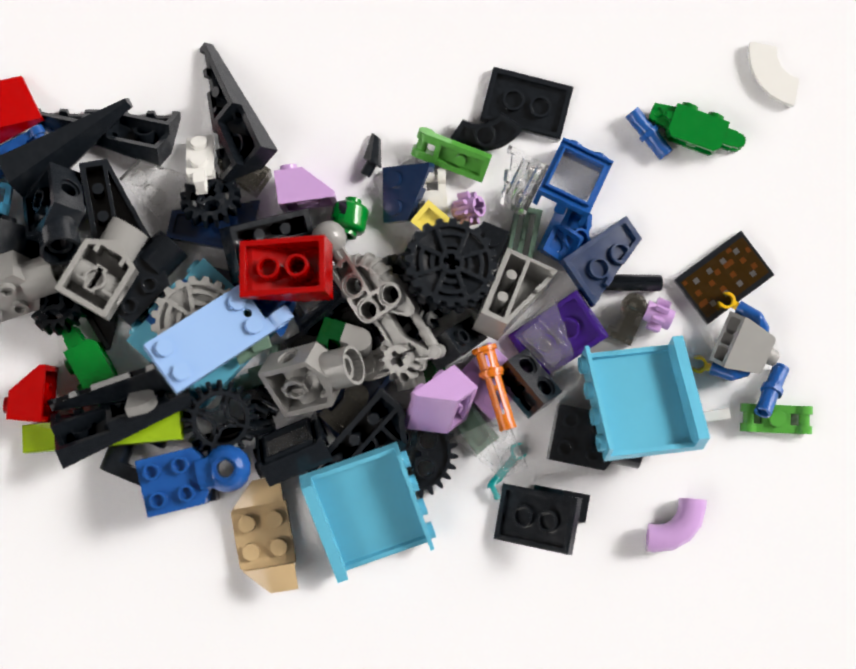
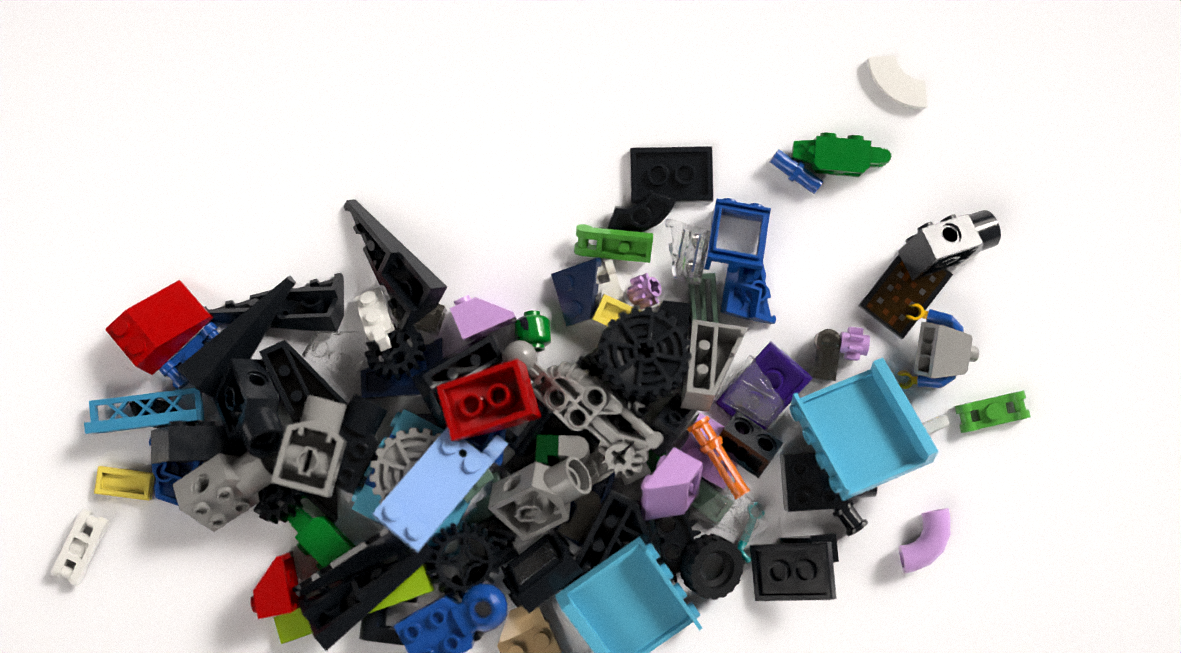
camera: 15 degrees left, 0 degrees up
(140, 402) = (383, 567): light grey tile -> none
(372, 156) = (538, 265): black bar -> none
(474, 506) = (727, 577): none -> black tyre
(598, 260) = (782, 307): dark blue wing -> none
(608, 483) = (850, 518): none -> black bush
(636, 282) = (809, 321): black axle -> none
(771, 390) = (981, 386): blue pin -> none
(778, 241) = (949, 242): none -> black brick

